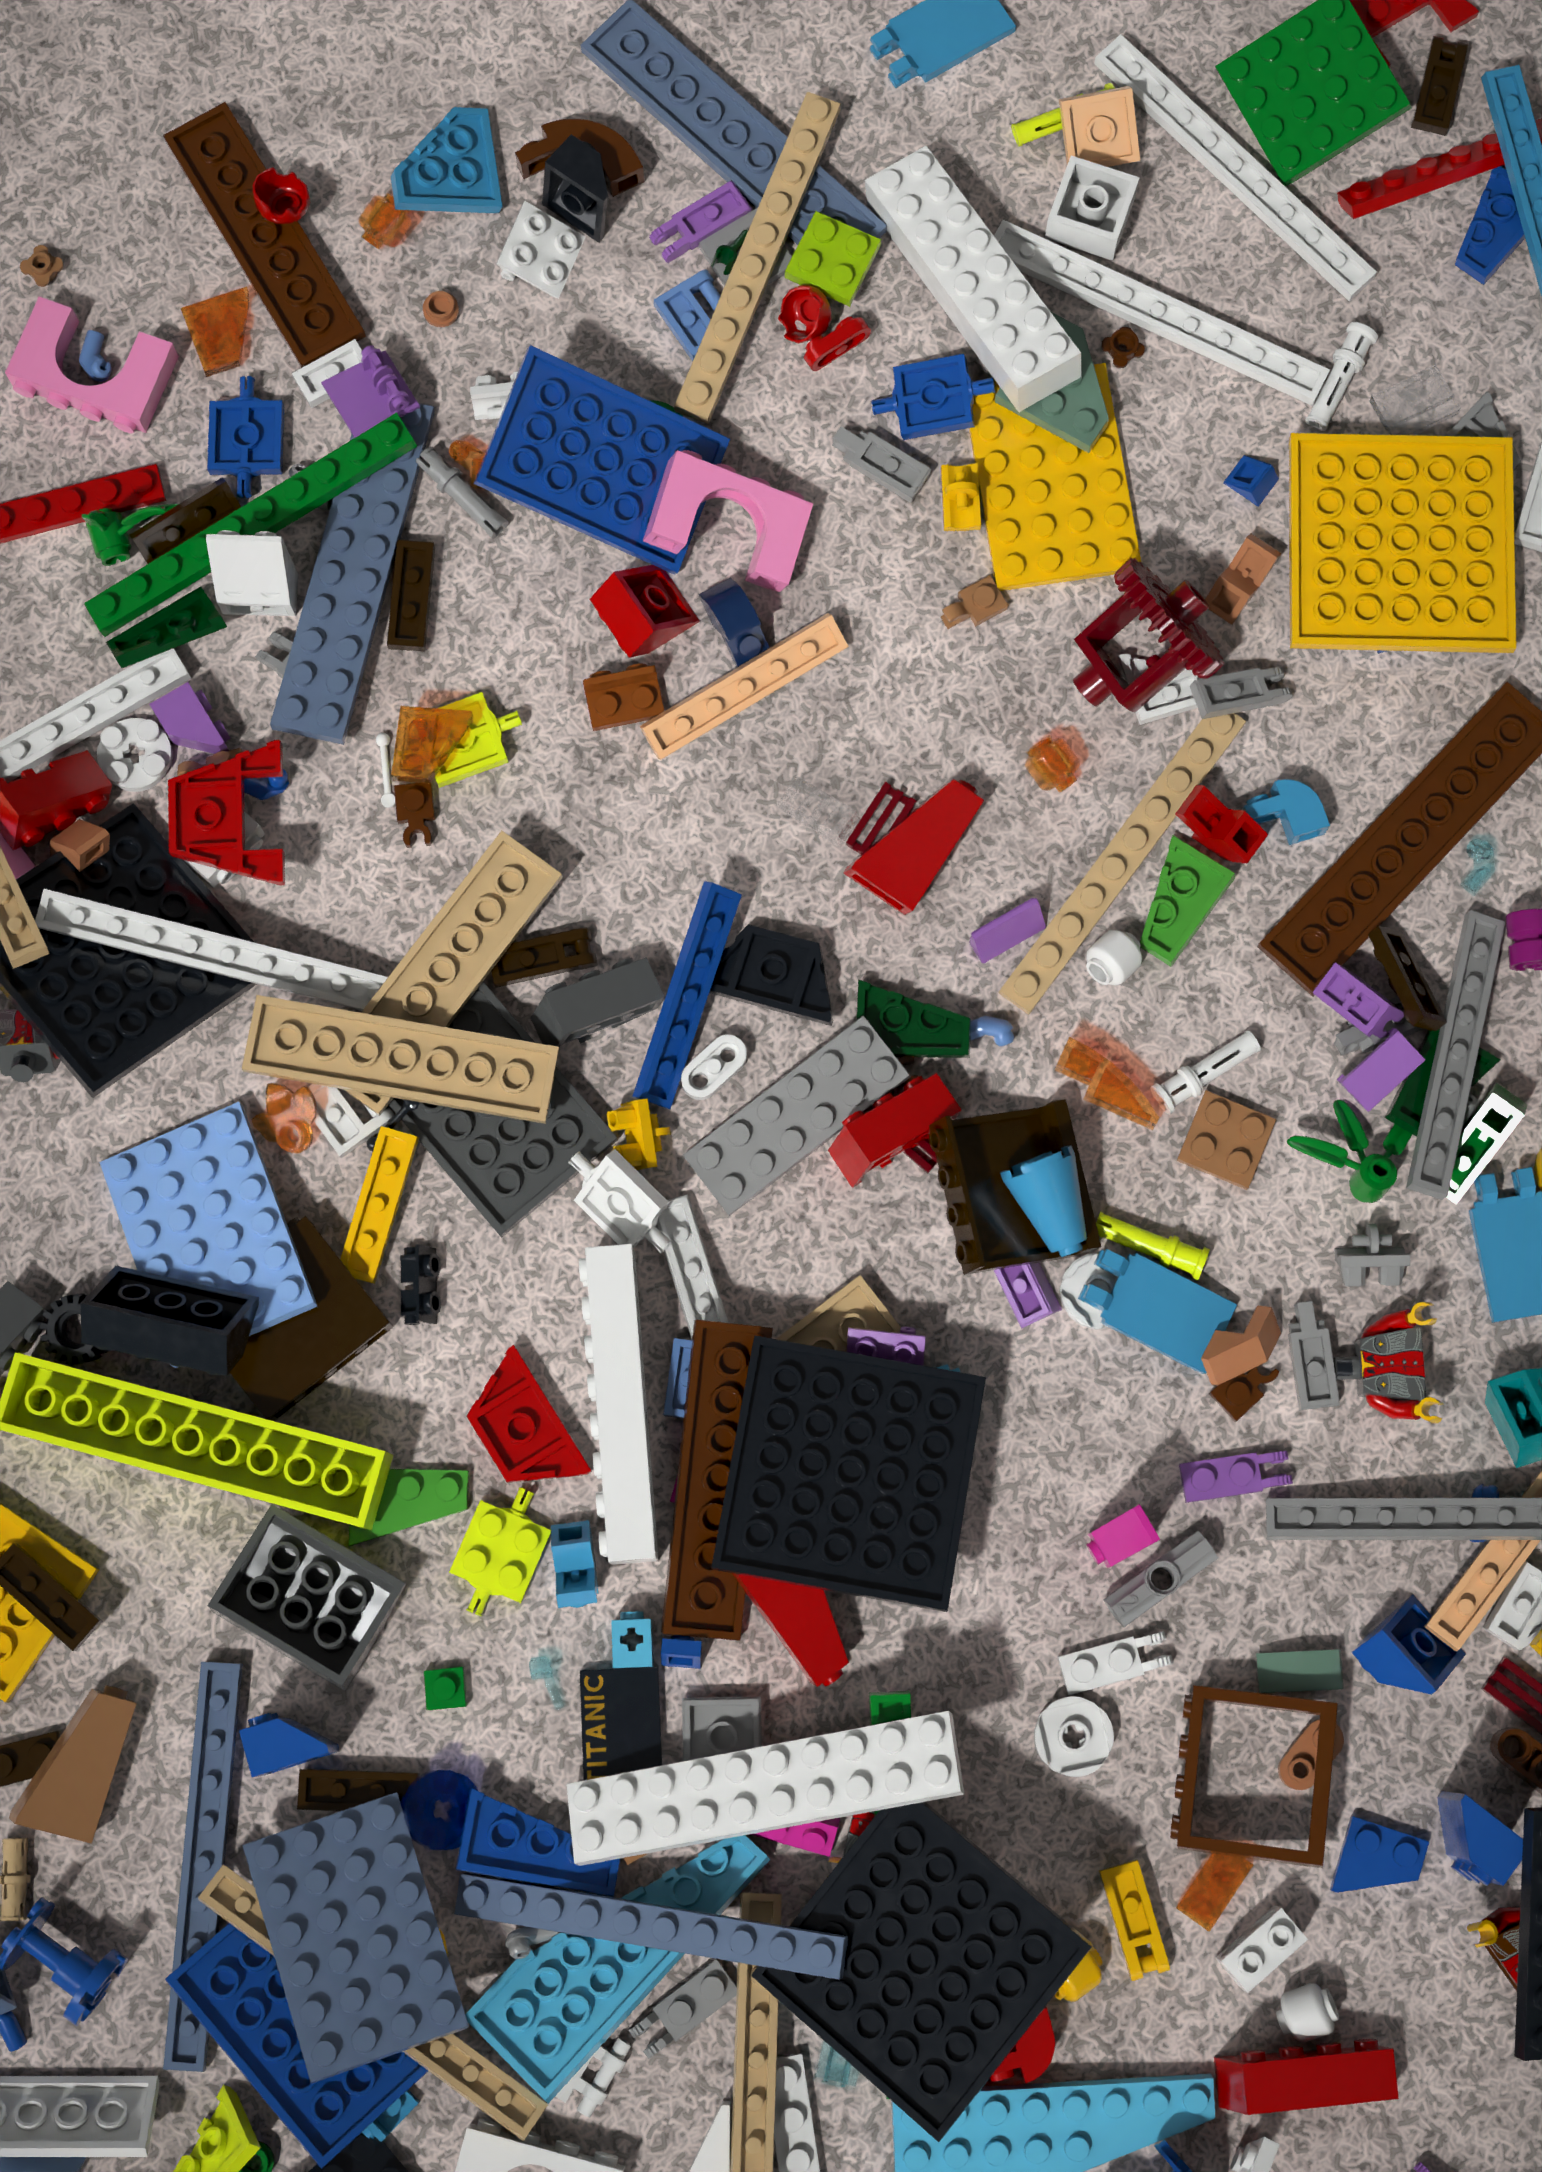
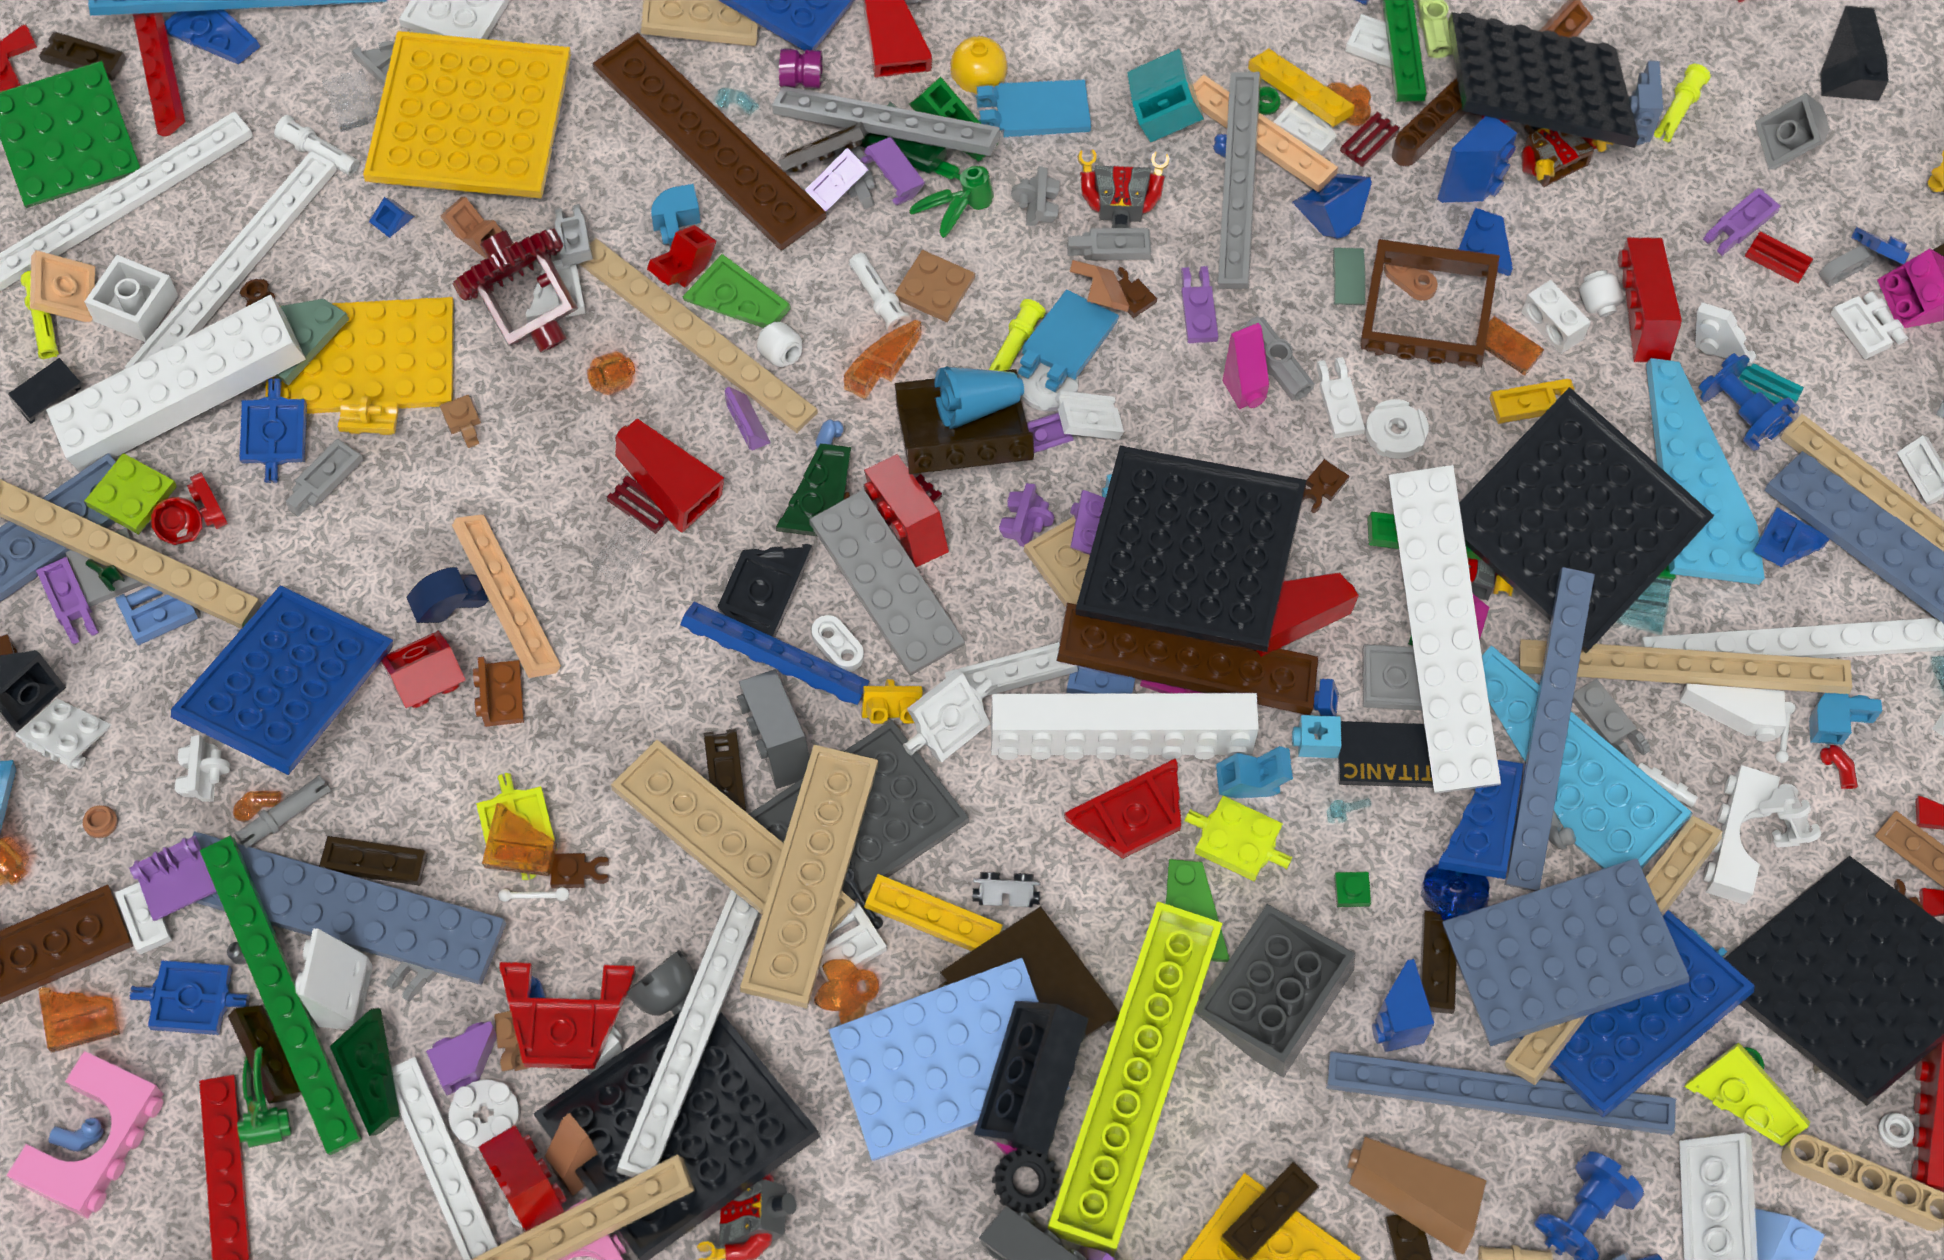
camera: 90 degrees left, 15 degrees down
(273, 918) = (664, 987): none -> dark grey cylinder
(777, 514) = (356, 556): bright pink arch -> none
(901, 1278) = (1030, 516): none -> medium lavender hips
(962, 141) = (44, 389): none -> black hinge
(988, 1646) = (1324, 482): none -> reddish brown plate
(1049, 1343) = (1089, 415): none -> white plate

